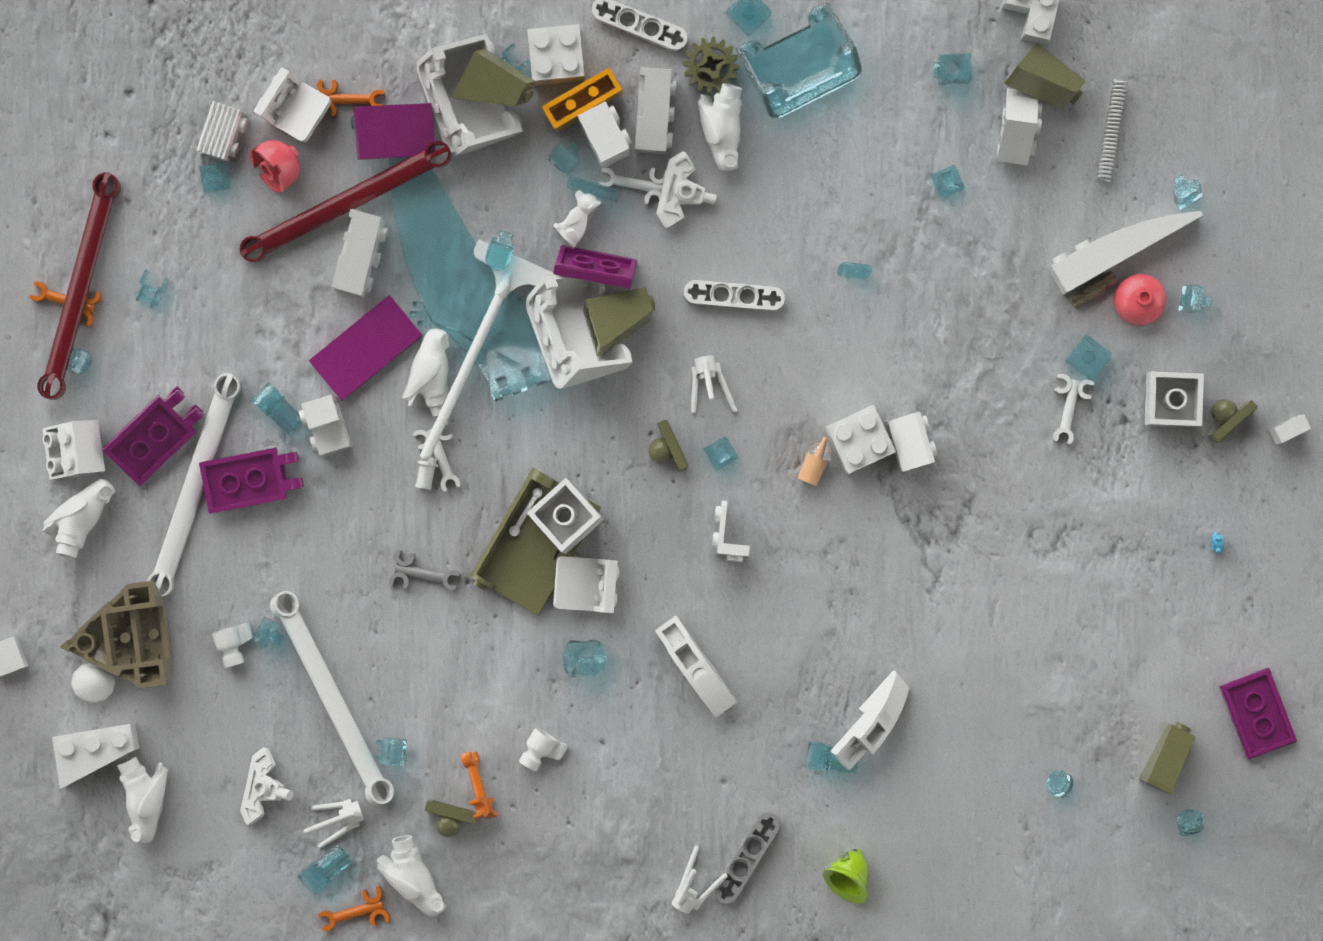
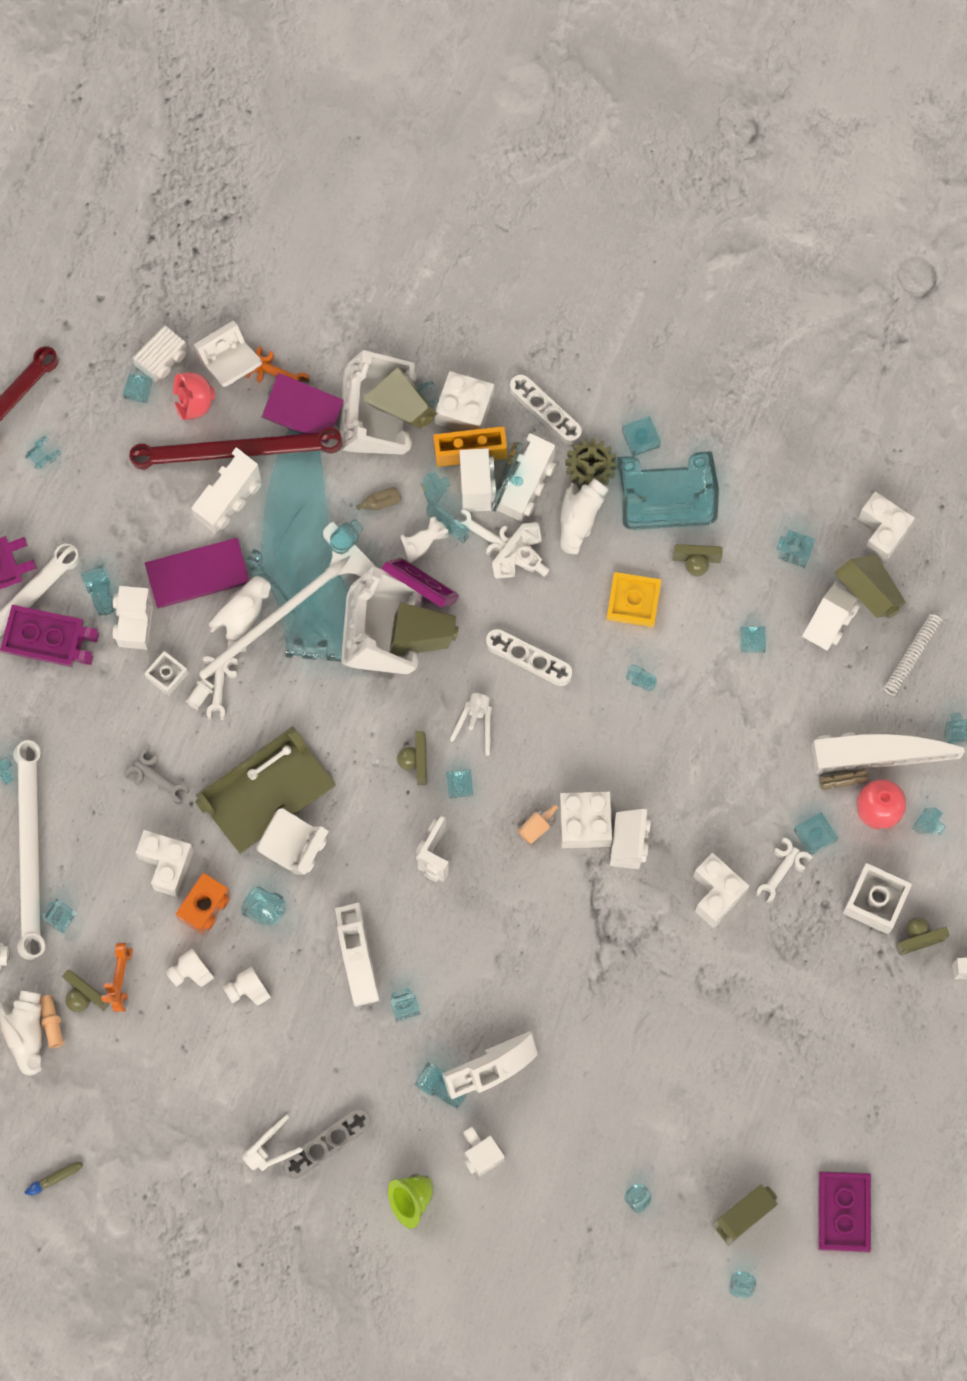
camera: 20 degrees right, 15 degrees down
(383, 465) = (166, 673): none -> white piece
(432, 855) = (51, 1022): none -> light nougat pin
(475, 649) = (171, 860): none -> white brick
(515, 192) = (380, 500): none -> dark tan piece
(516, 693) = (204, 889): none -> orange brick
(565, 516) = (301, 775): white brick -> none
(604, 738) = (249, 984): none -> white piece
(636, 122) = (506, 474): none -> clear light blue shield
(763, 696) = (404, 1005): none -> clear light blue tile
(812, 190) = (633, 599): none -> yellow tile
(859, 121) = (697, 557): none -> olive tile
(898, 806) = (483, 1154): none -> white brick
(1024, 455) = (723, 886): none -> white brick
(1217, 542) = (867, 1042): medium azure piece -> none

